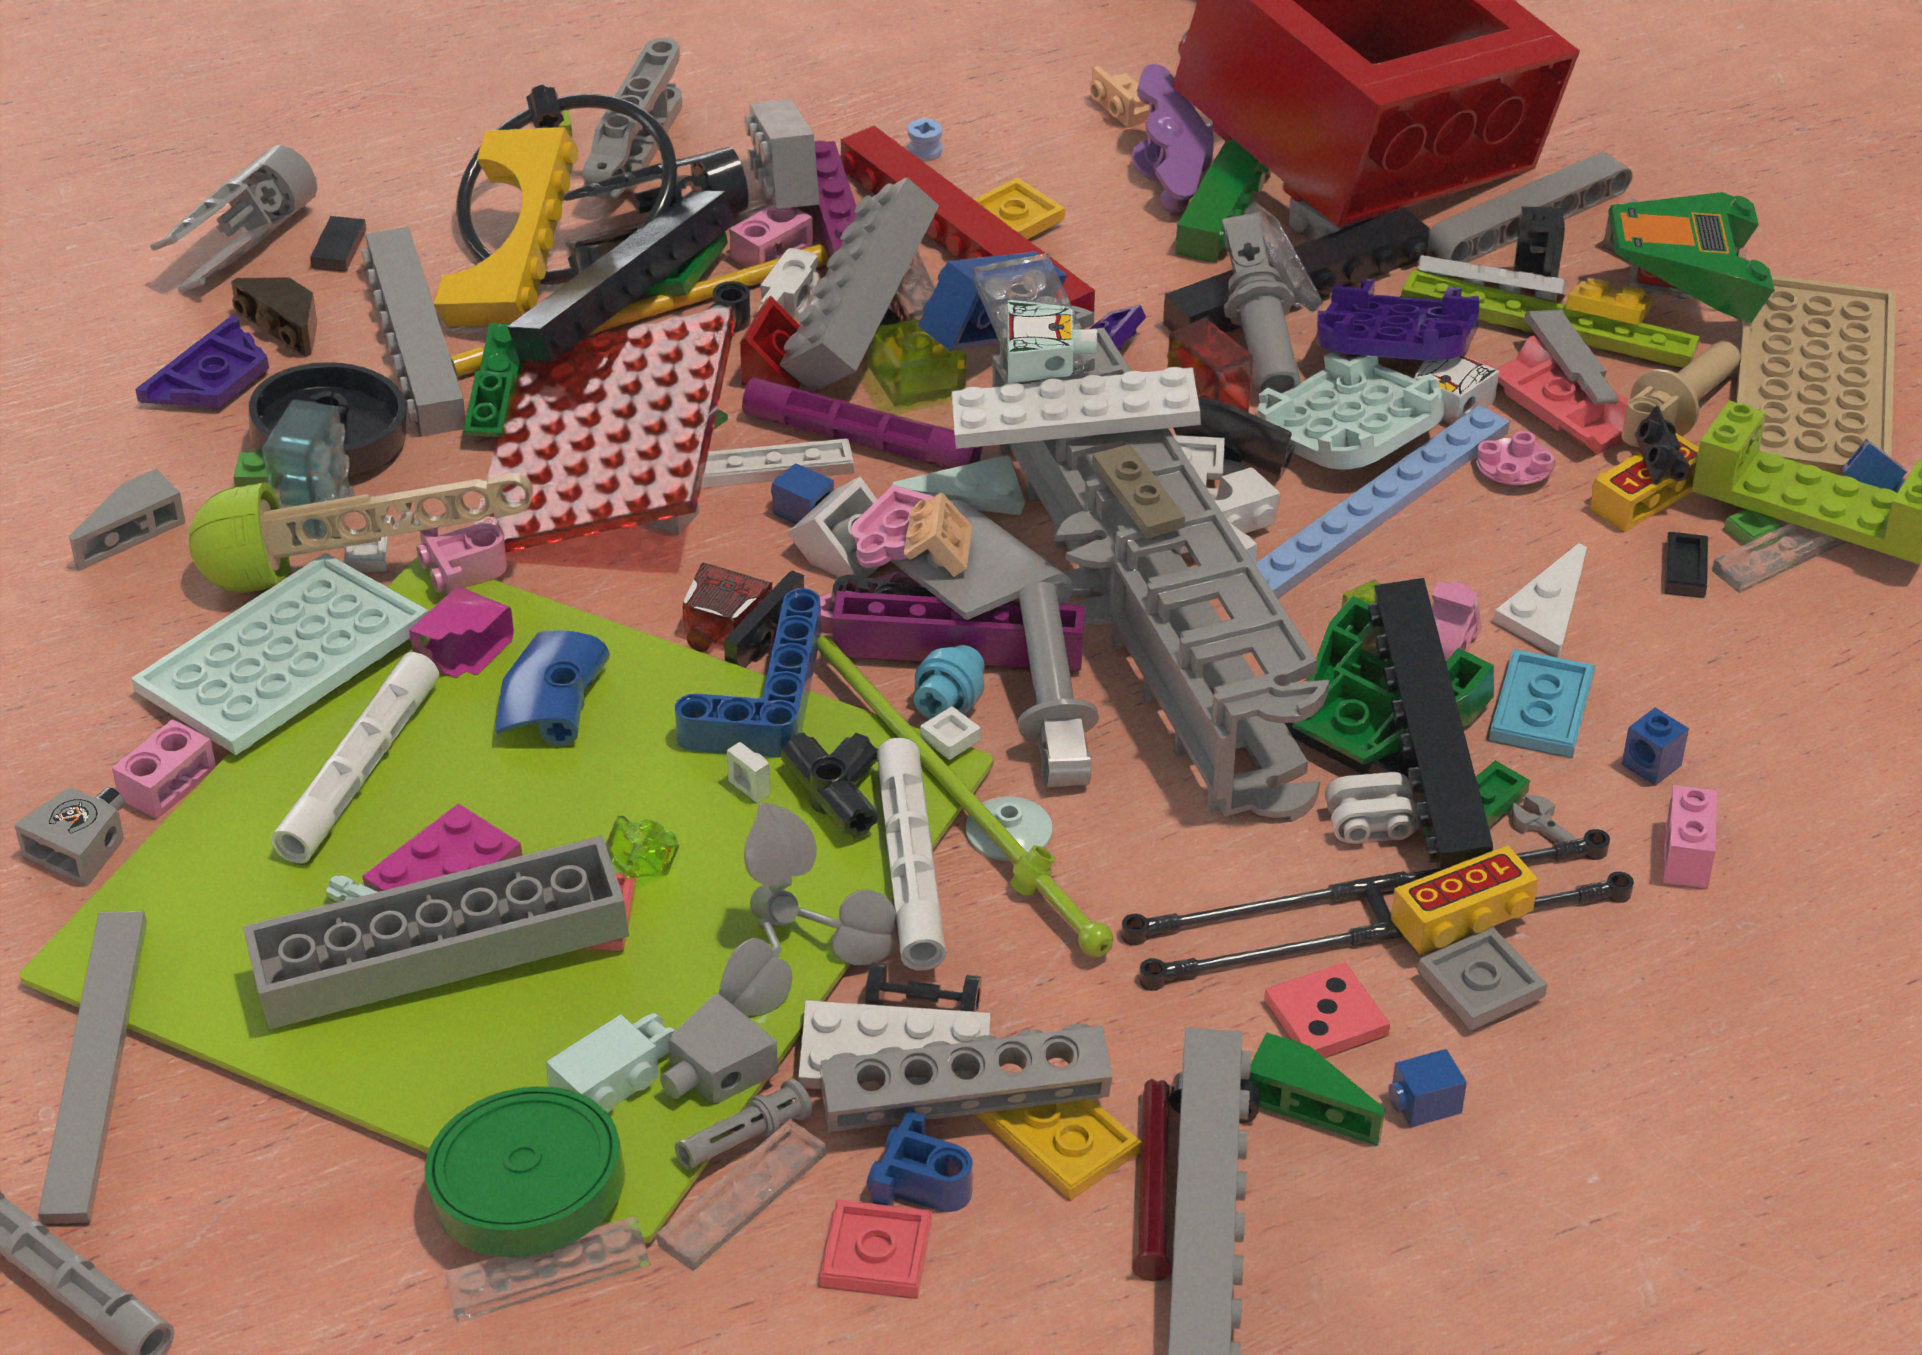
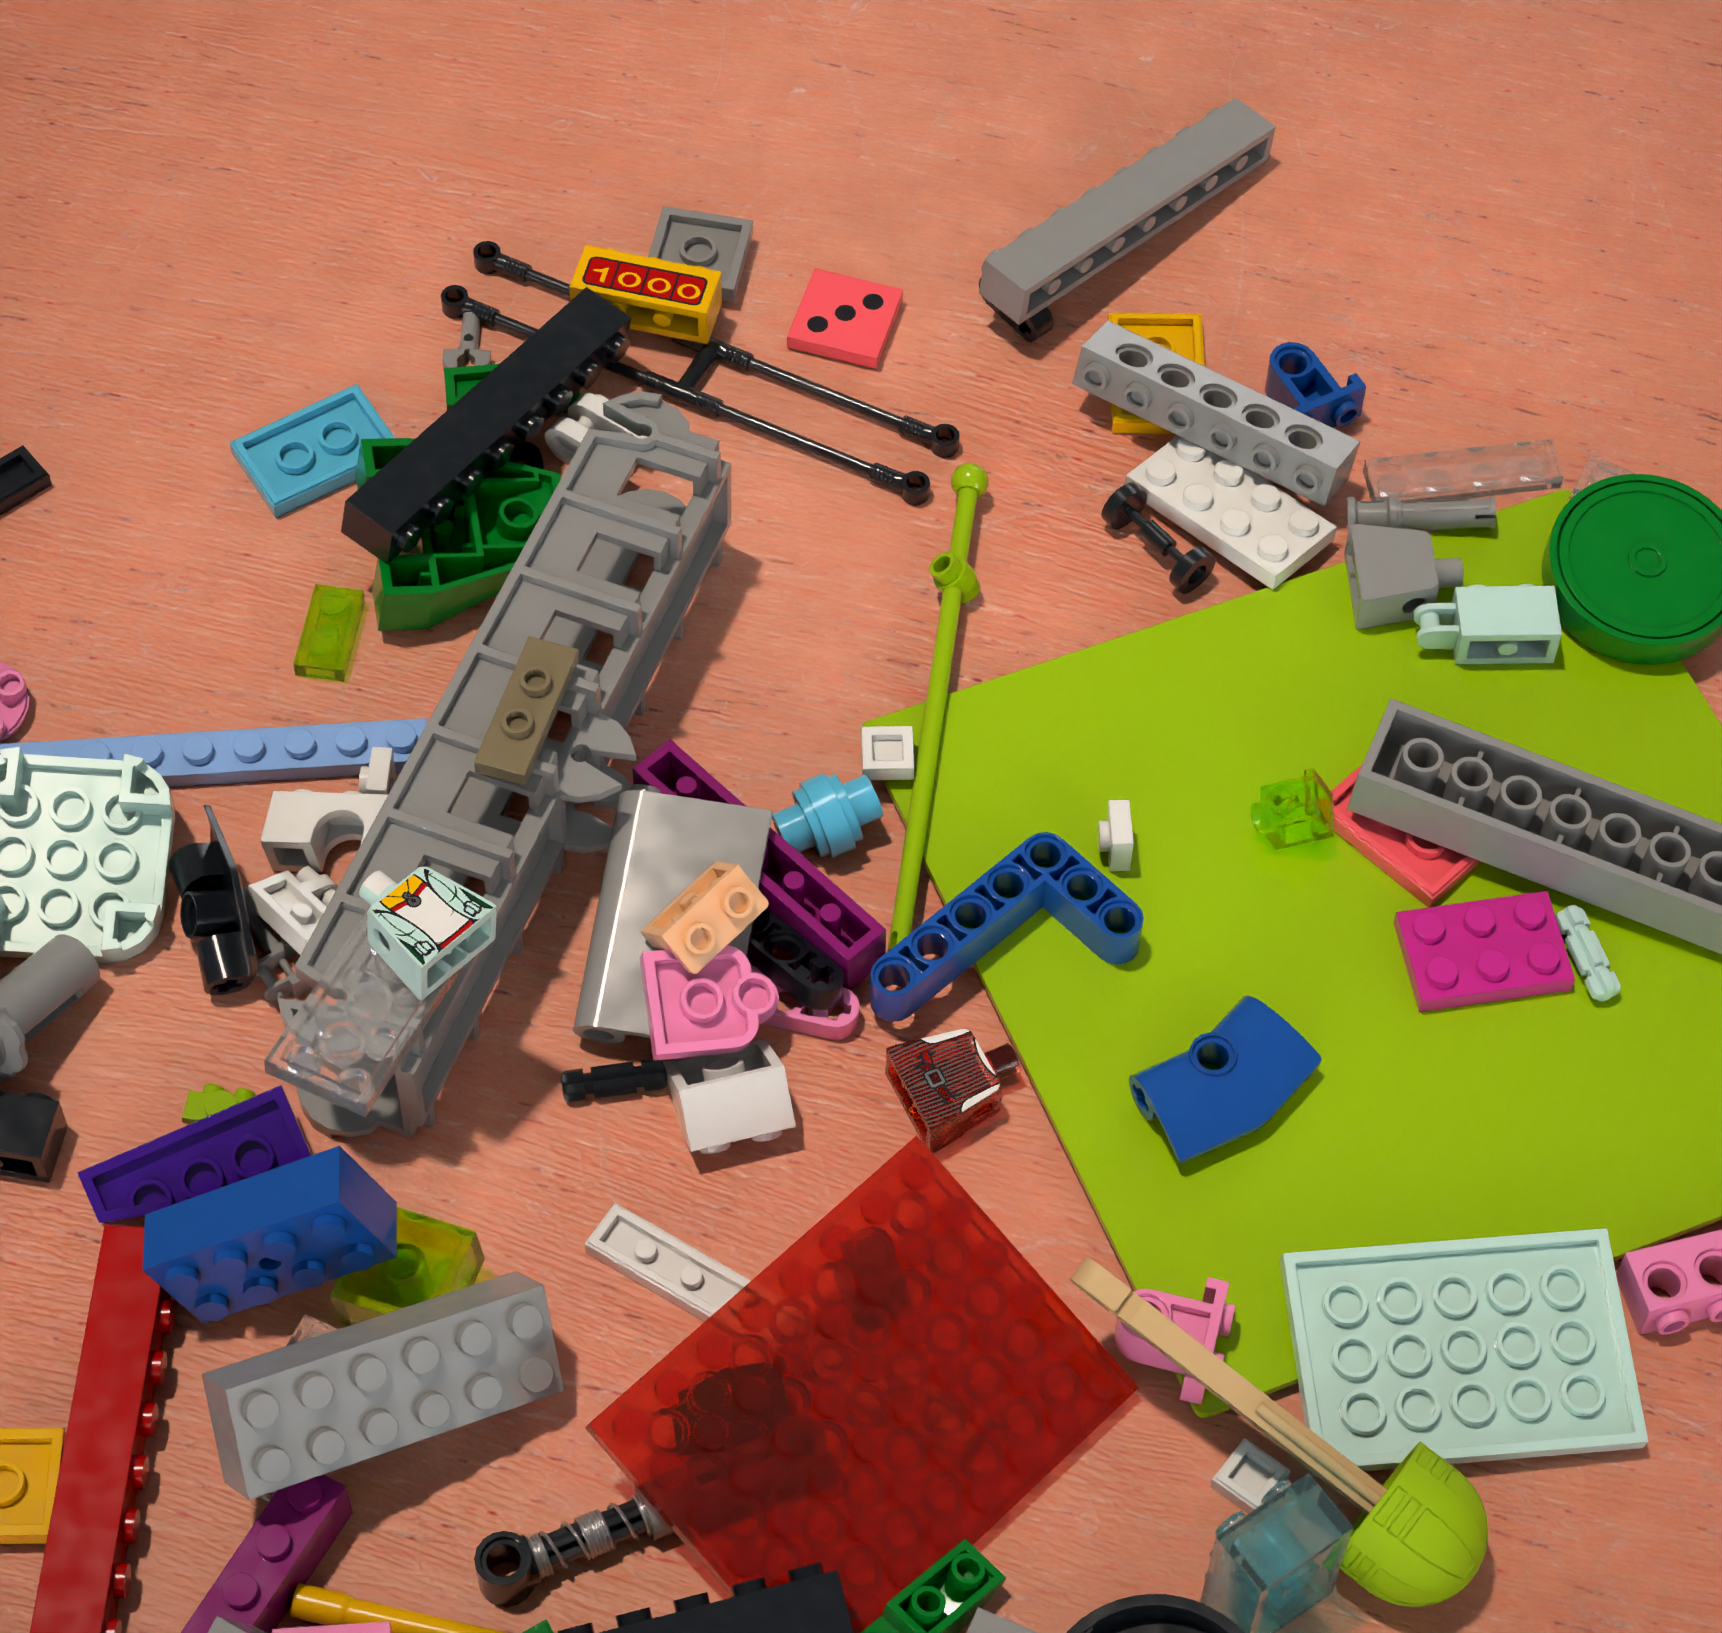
camera: 140 degrees left, 15 degrees up
(354, 758) = (1481, 1129): white piece -> none
(468, 632) = (1258, 1219): dark pink piece -> none
(760, 625) = (867, 1048): black plate -> none
(764, 345) = (530, 1445): red slope -> none
(774, 851) = (1224, 666): light grey plant -> none
(792, 281) = (414, 1541): white piece -> none
(799, 492) = (722, 1182): blue brick -> none
(833, 779) = (1031, 780): black piece -> none
(856, 423) = (556, 1242): magenta piece -> none
(876, 1249) = (1397, 376): coral tile -> none
(910, 855) = (1049, 653): white piece -> none
(984, 485) = (537, 1055): light aqua wing -> none
(1020, 817) = (902, 675): light aqua dish -> none
(1058, 718) = (777, 693): light grey piece -> none
(1075, 407) = (410, 818): white plate -> none
(1151, 1259) = (1128, 281): dark red axle -> none
(1218, 363) = (147, 998): clear red brick -> none
(1312, 1090) = (945, 267): green slope -> none
(1427, 1088) = (851, 200): blue brick -> none
(1455, 616) = (310, 546): bright pink pin -> none
(1544, 605) = (181, 537): white wing -> none
(1655, 746) = (301, 325): blue brick -> none
(1690, 836) = (388, 236): bright pink brick -> none

